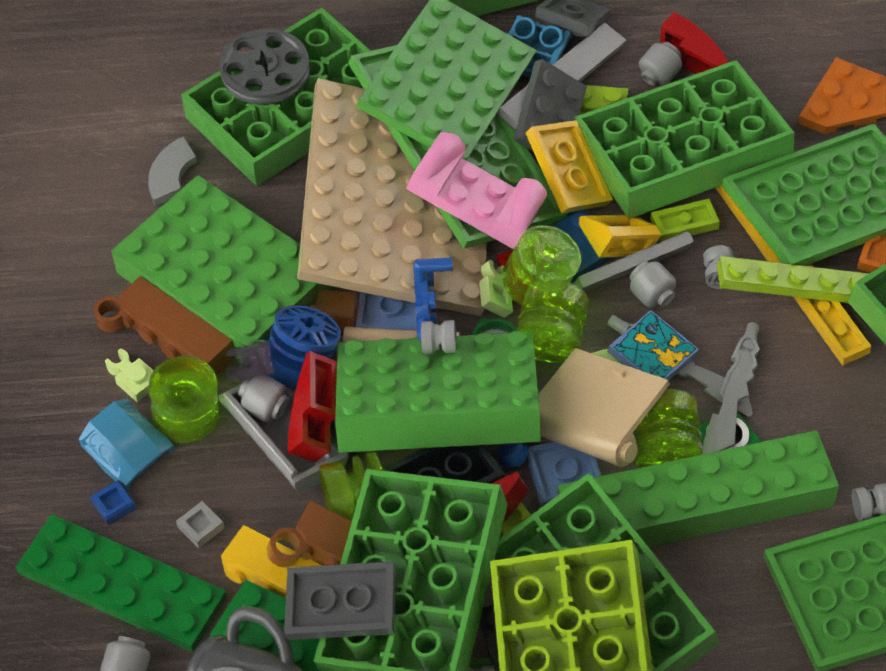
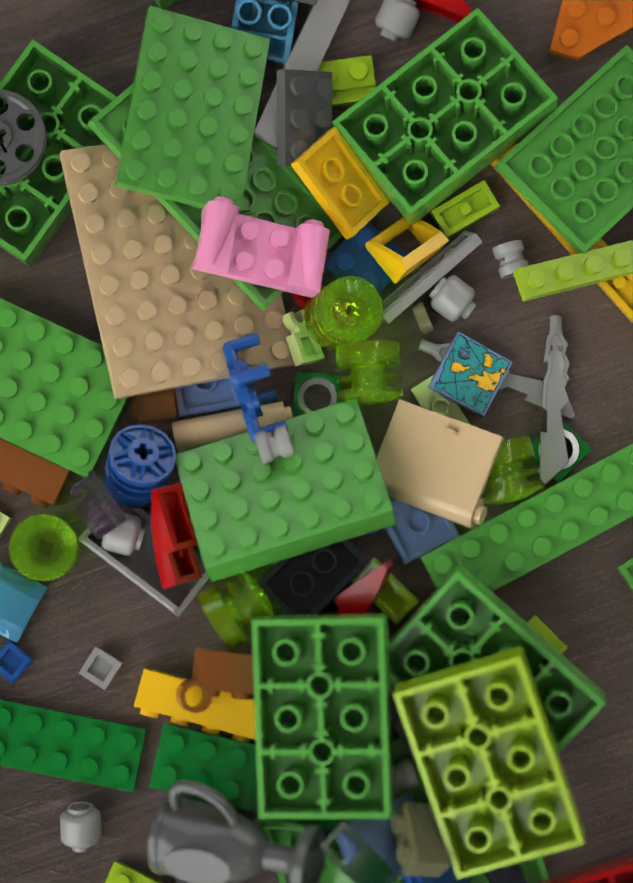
camera: 15 degrees left, 30 degrees up
(340, 600) = (268, 764): dark grey plate -> none
(619, 296) = (422, 318): none -> olive tile

